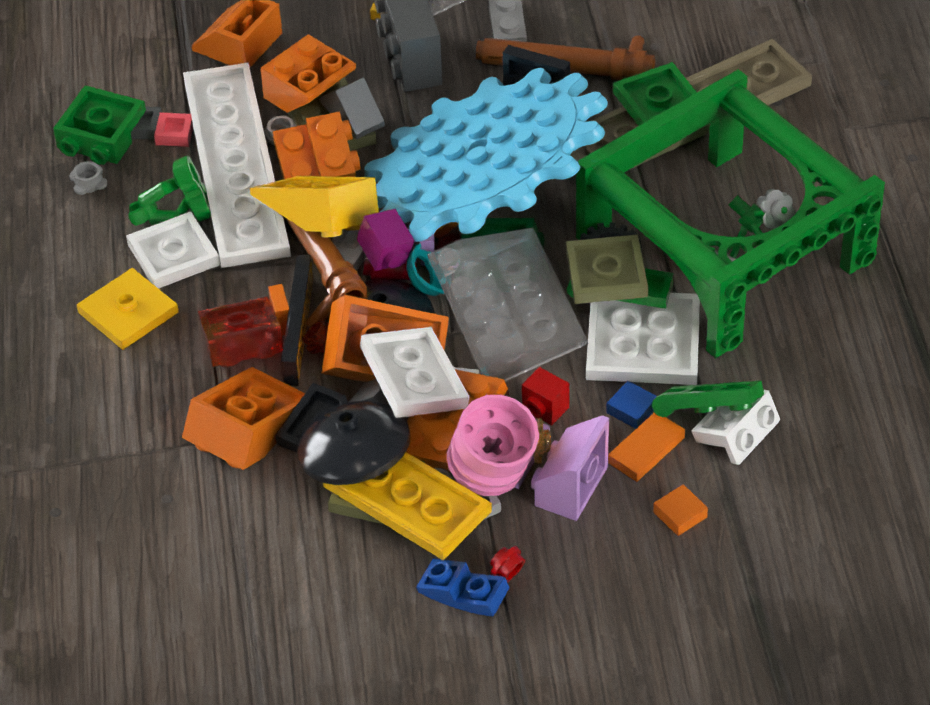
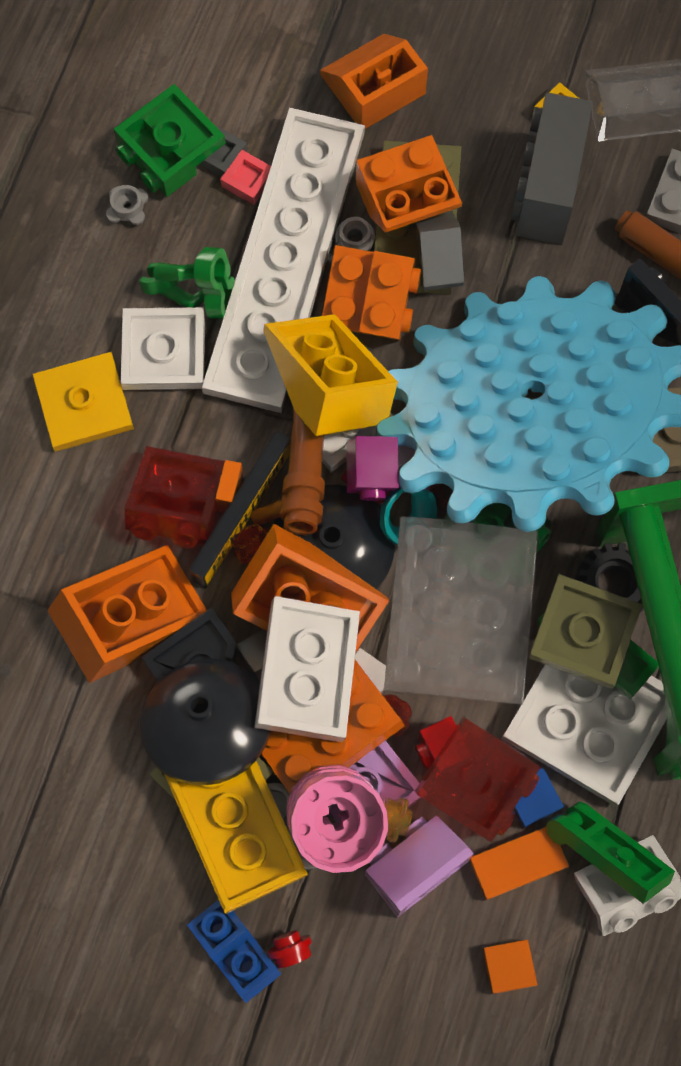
camera: 25 degrees right, 25 degrees up
(584, 388) = (479, 780): none -> clear red plate

